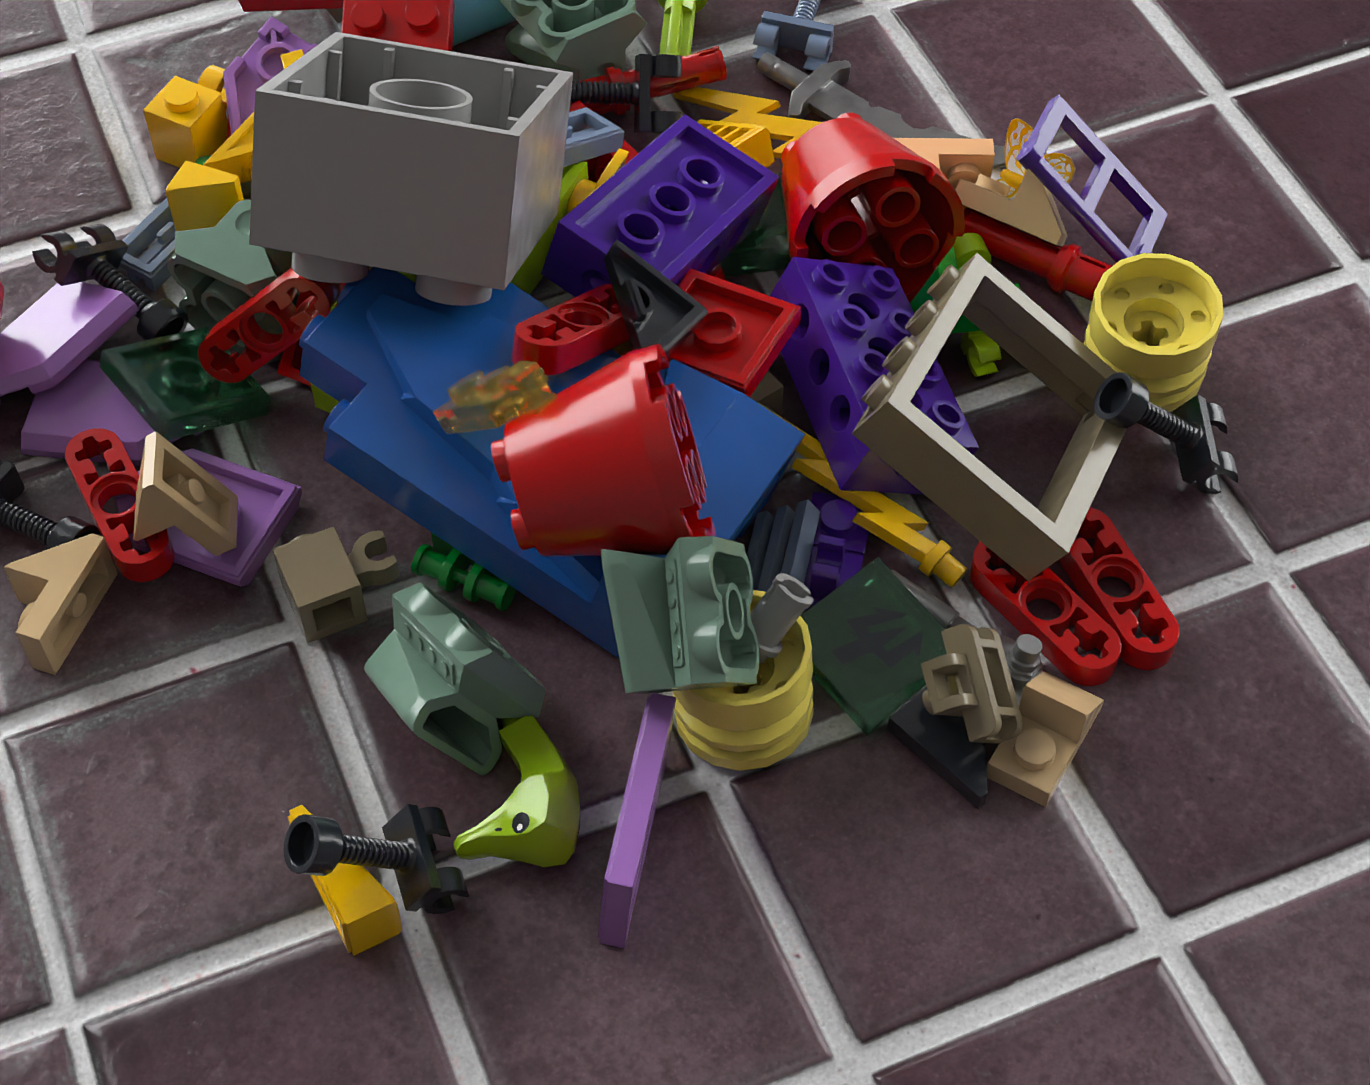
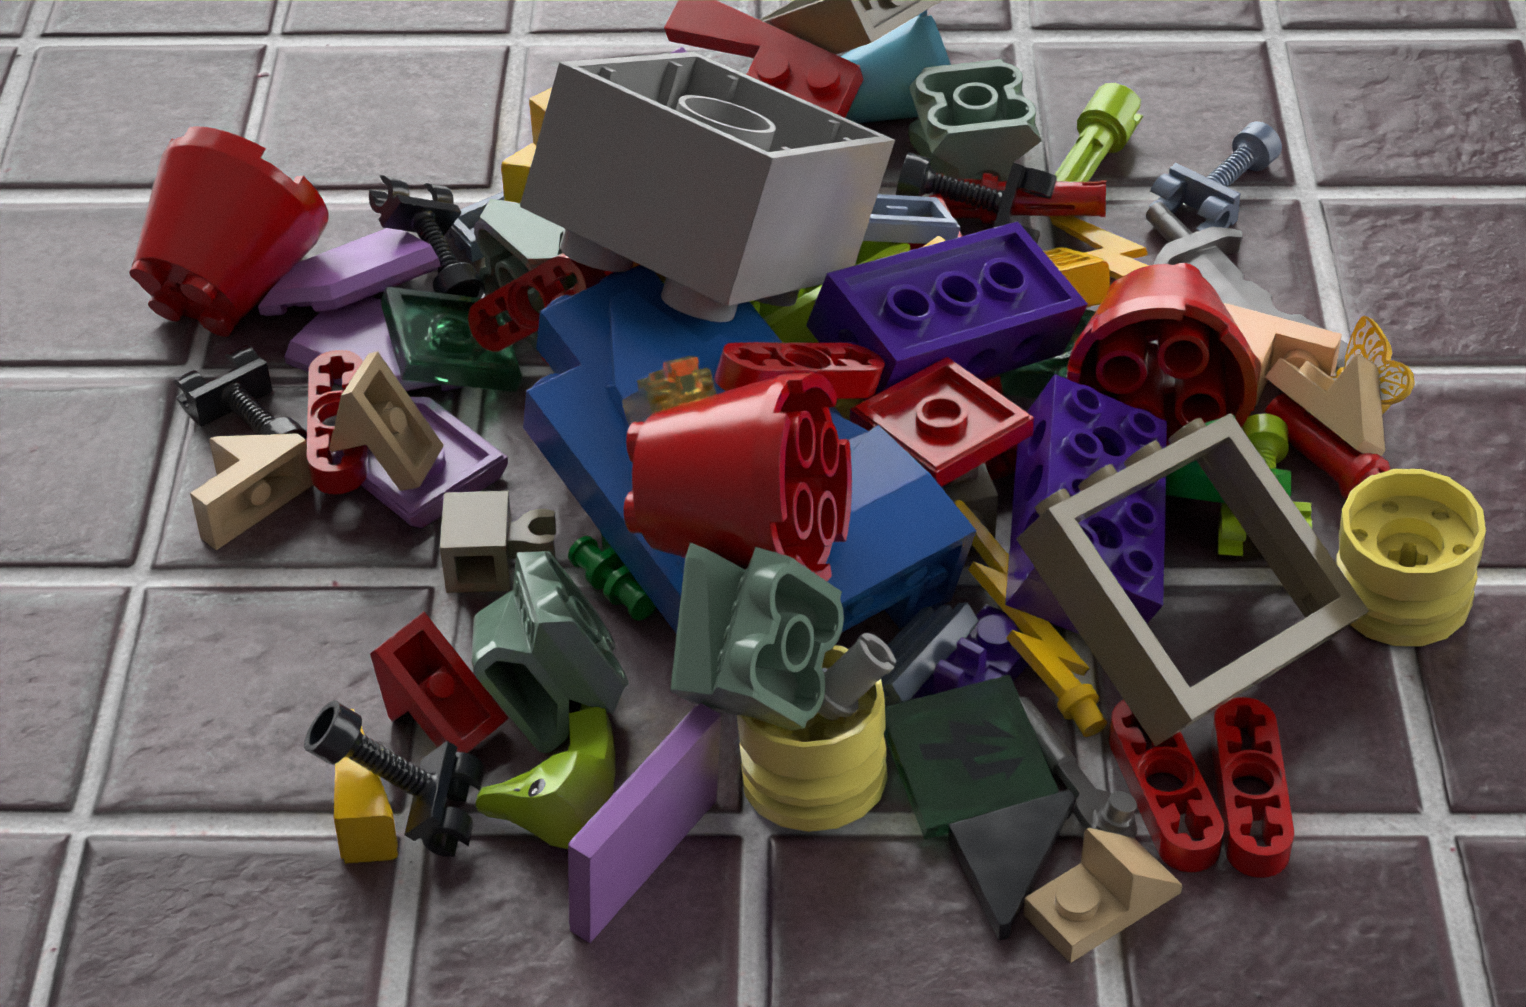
camera: 25 degrees right, 10 degrees down
(362, 749) = (431, 681): none -> red slope
(651, 303) = (877, 373): black tile -> none
(976, 686) = (1037, 789): dark tan piece -> none
(1106, 168) = (1450, 389): window -> none
(1126, 402) = (1410, 663): black bar -> none

